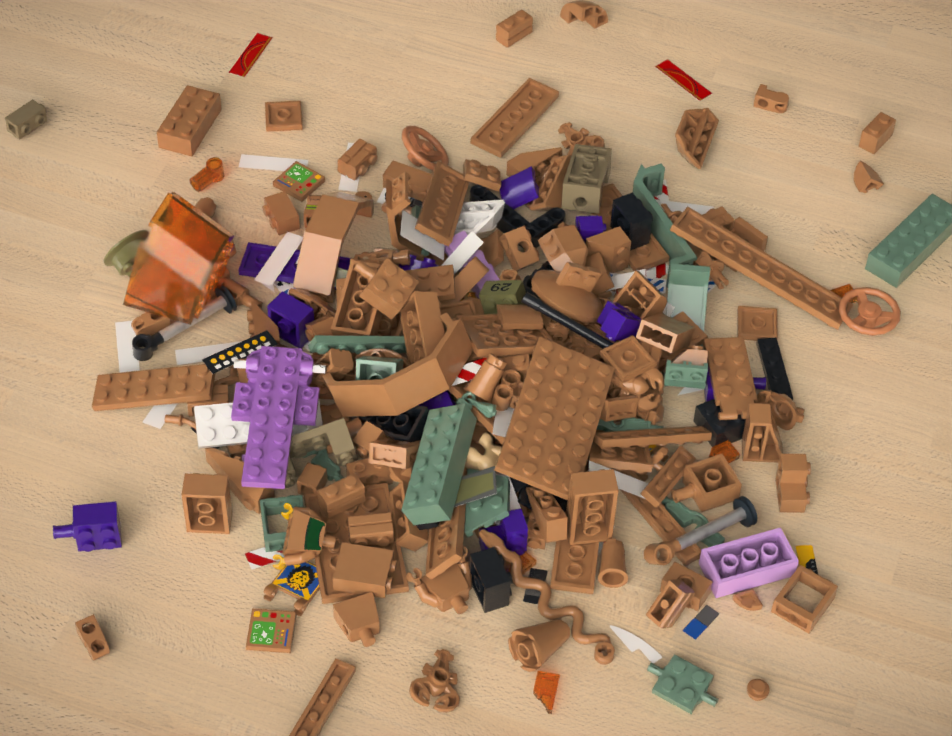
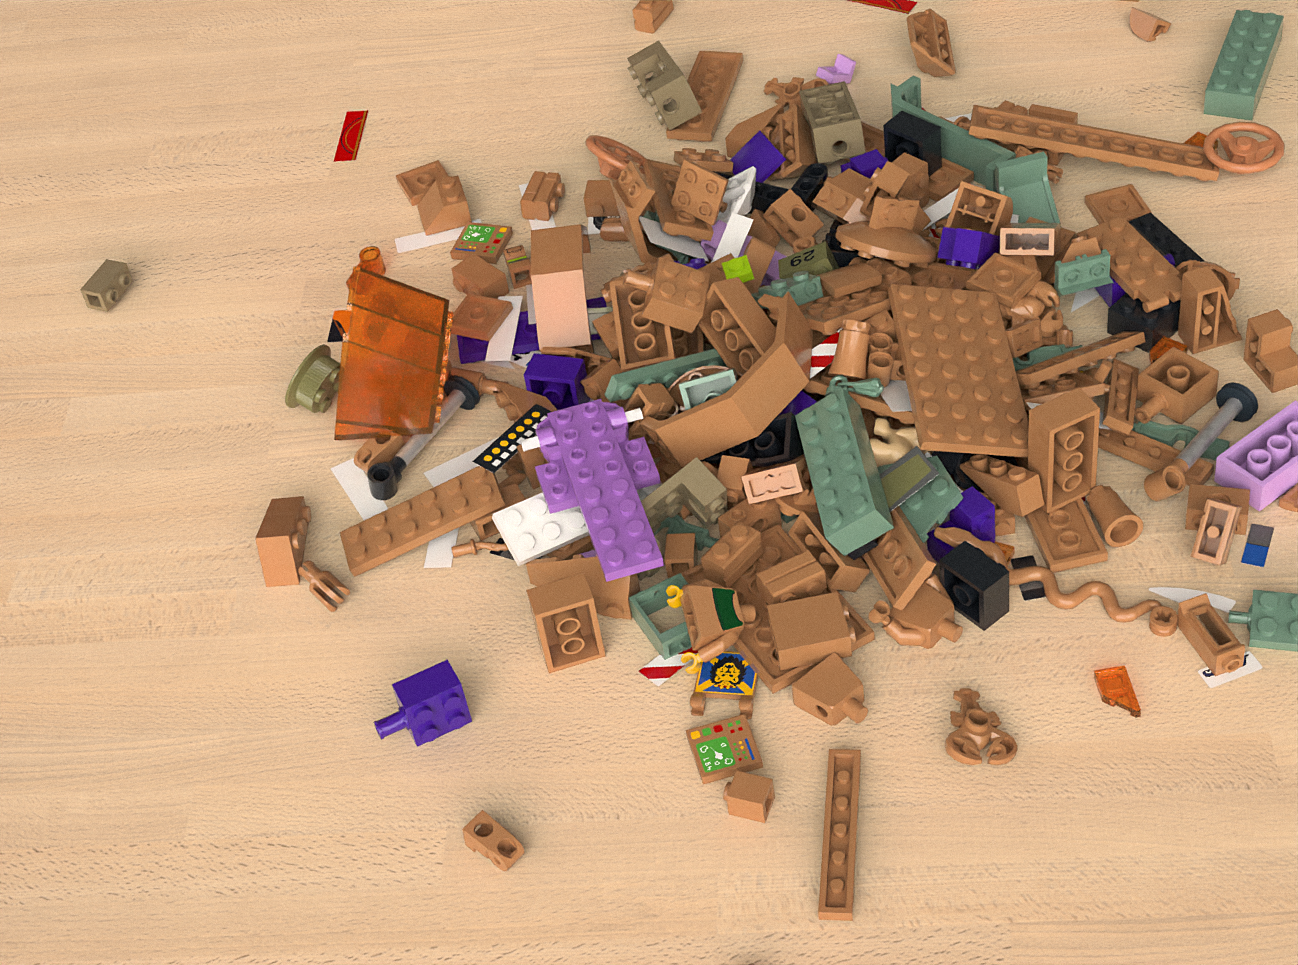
camera: 10 degrees left, 5 degrees down
(57, 367) = (283, 540): none -> medium nougat wedge
(69, 411) = (323, 584): none -> medium nougat arm
(189, 120) = (313, 222): medium nougat brick -> none
(265, 243) = (479, 316): none -> medium nougat tile
(269, 670) = (749, 796): none -> medium nougat brick
(286, 142) = (444, 206): none -> medium nougat slope
(447, 282) = (739, 268): none -> lime plate
(454, 208) = (700, 192): none -> medium nougat plate
(474, 312) = (802, 288): none -> sand green plate
(483, 102) = (664, 84): none -> dark tan plate
(537, 643) = (1076, 639): medium nougat cone -> none
(538, 305) = (865, 257): black piece -> none
(583, 252) = (886, 182): none -> medium nougat brick
(618, 135) = (839, 72): none -> lavender bracket
(627, 695) = (1221, 658): none -> medium nougat window
(629, 704) = (1250, 665): none -> white sticker

